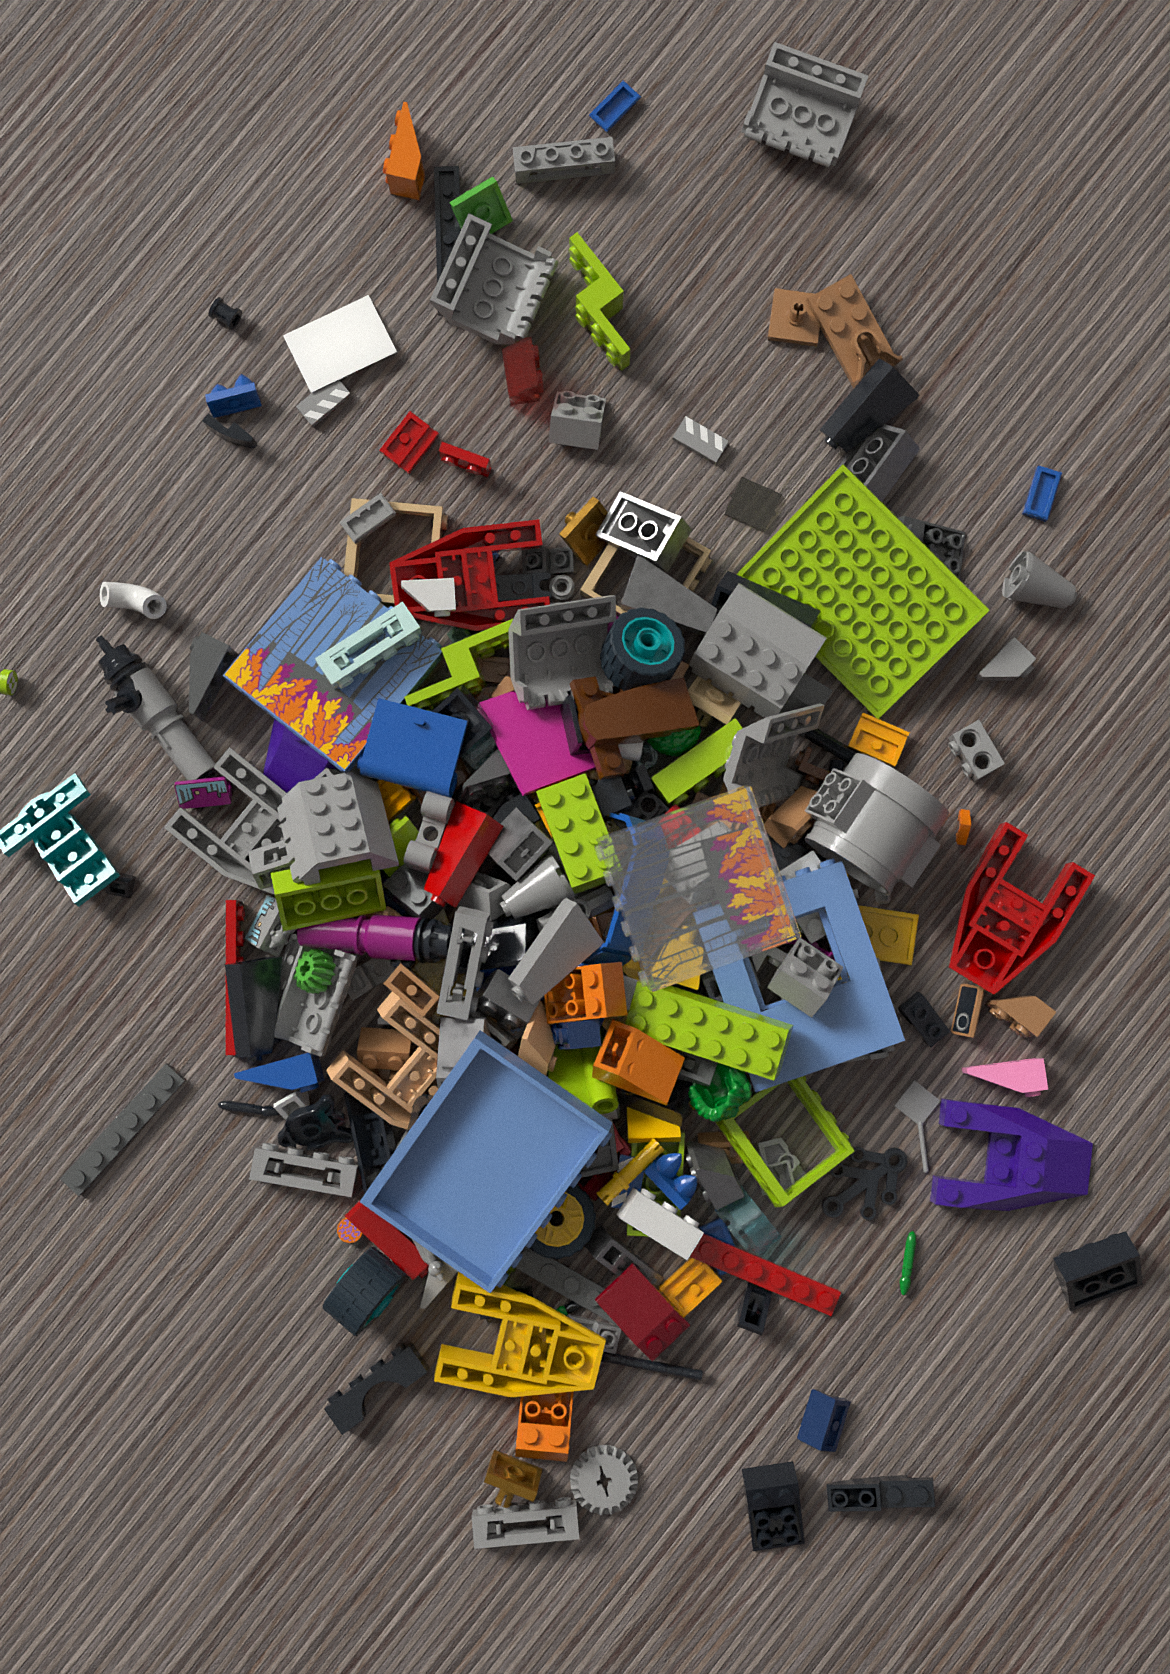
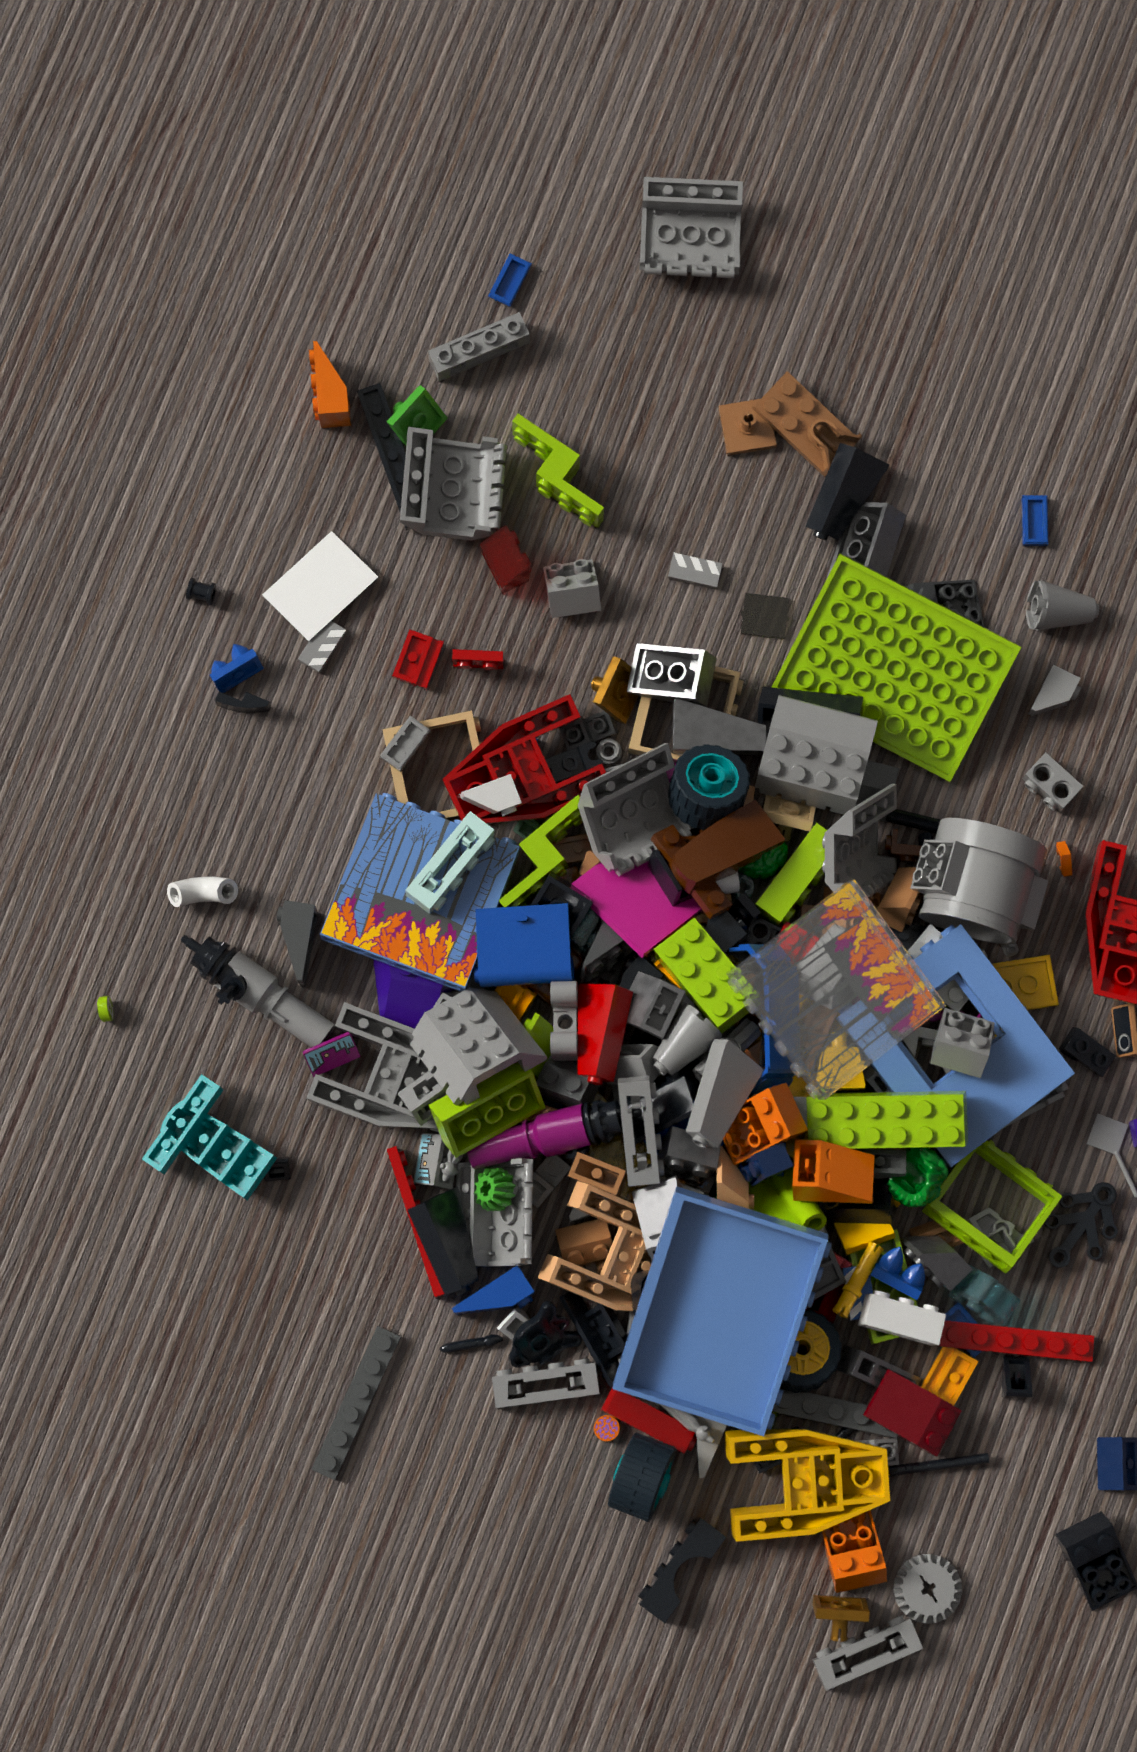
camera: 20 degrees left, 5 degrees down
(878, 739) = (957, 800): light orange plate -> none

